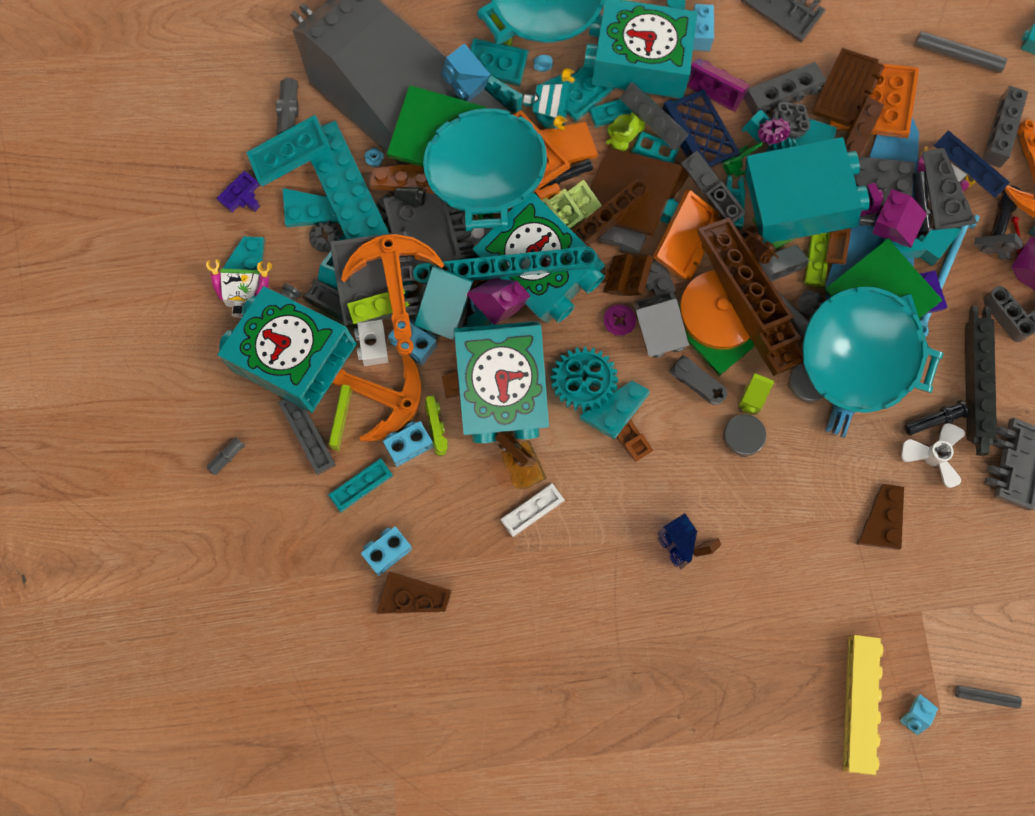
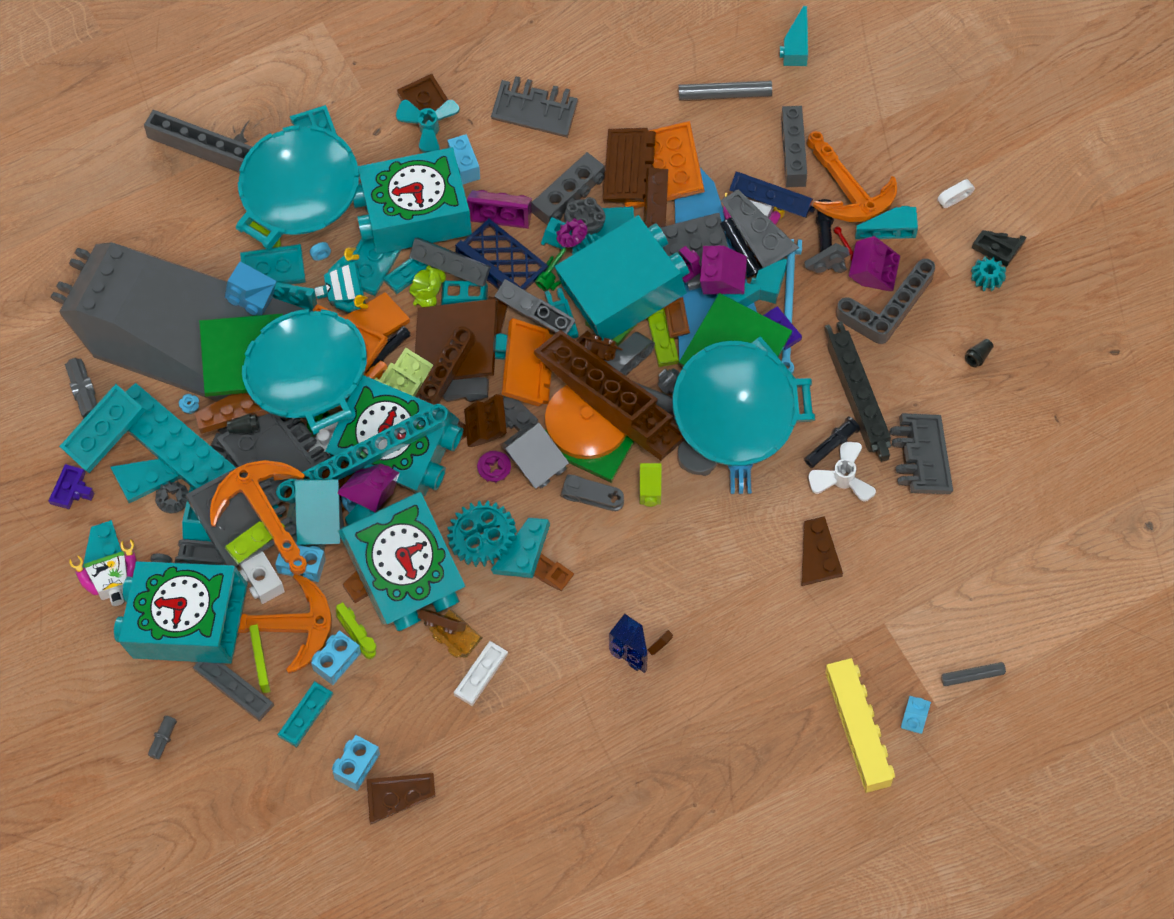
camera: 15 degrees left, 10 degrees down
(744, 435) = (656, 527): dark grey tile -> none

